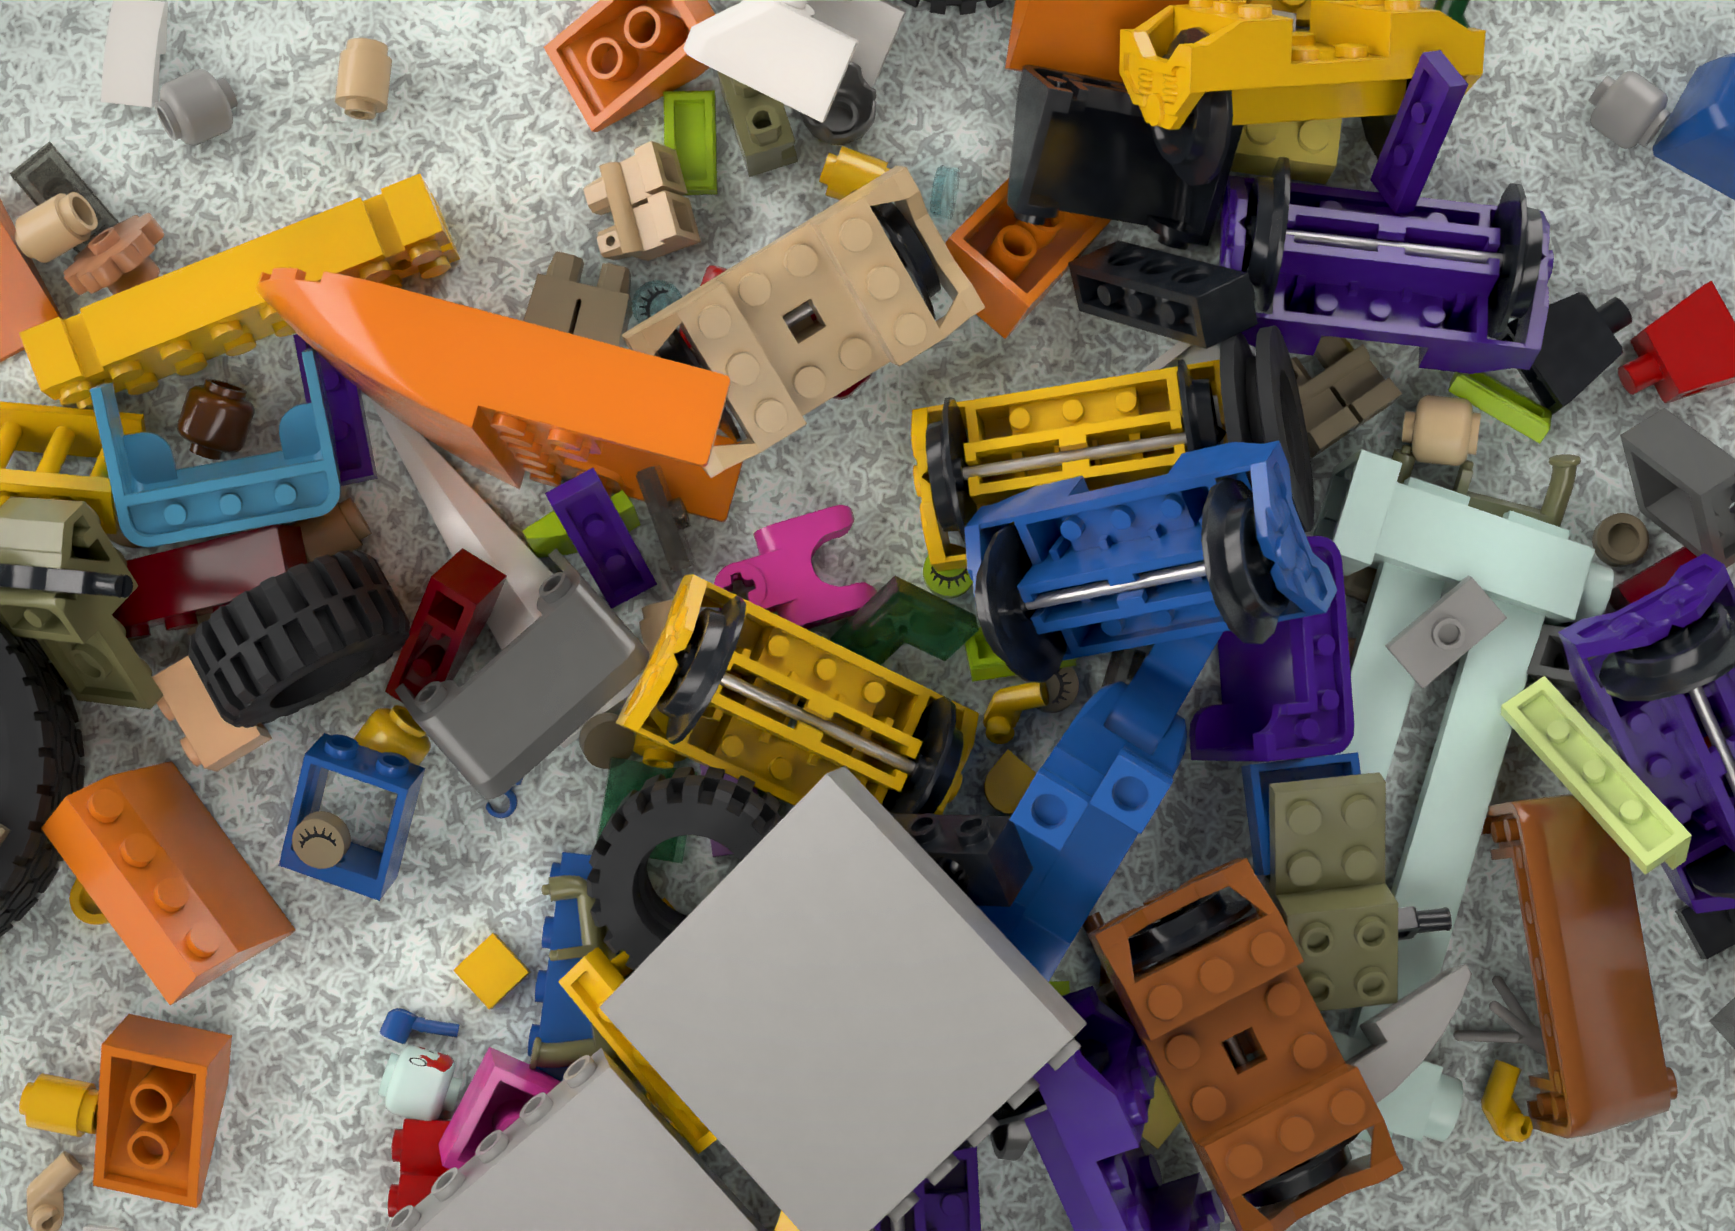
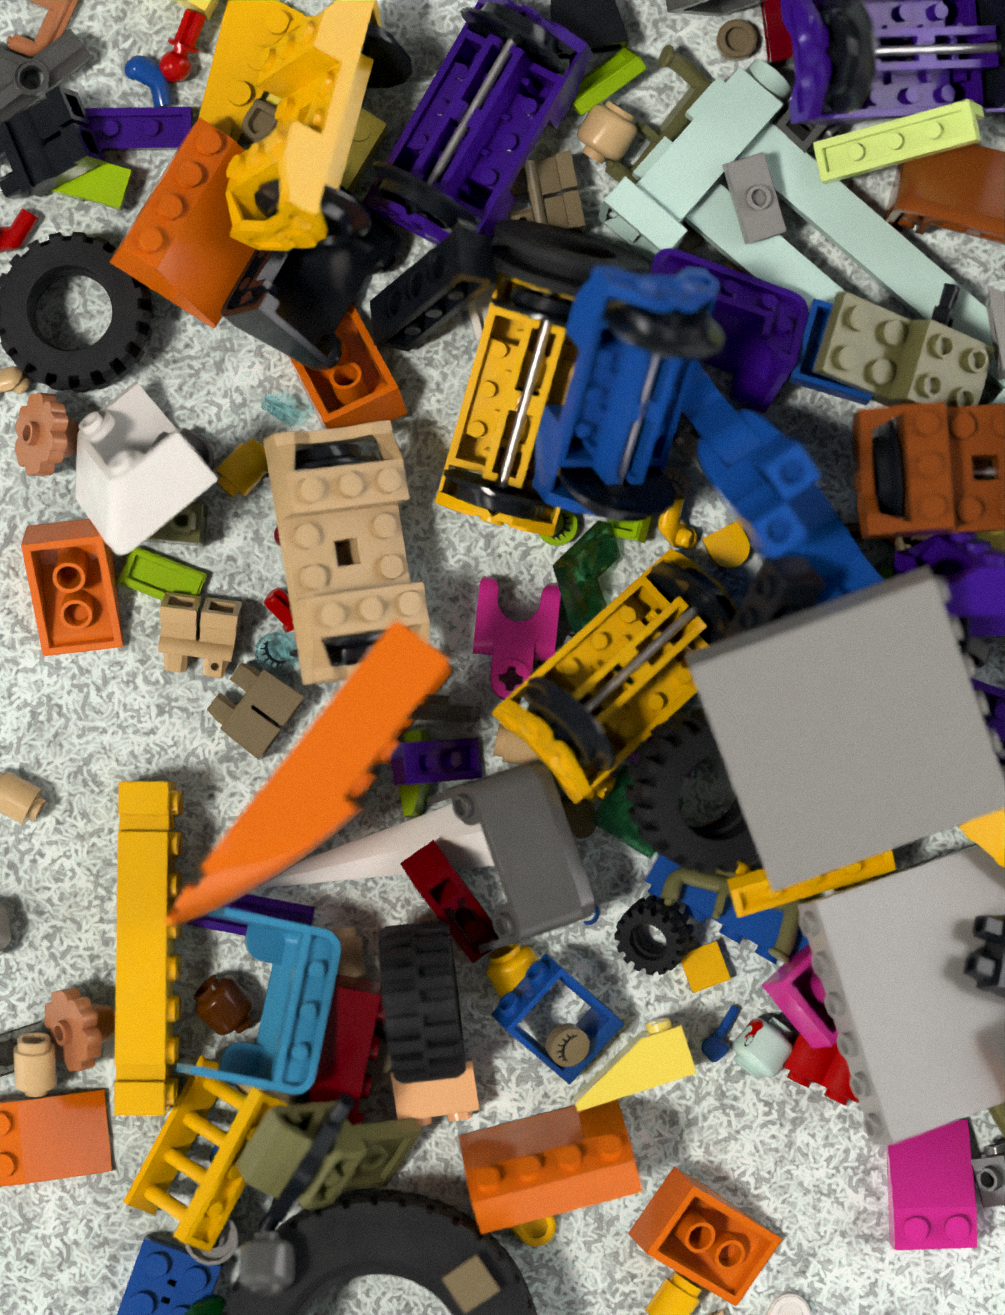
camera: 70 degrees left, 5 degrees up
(343, 951) = (644, 1063): none -> light yellow slope
(479, 888) = (643, 951): none -> black tyre
(1418, 131) = (397, 60): dark purple plate -> none

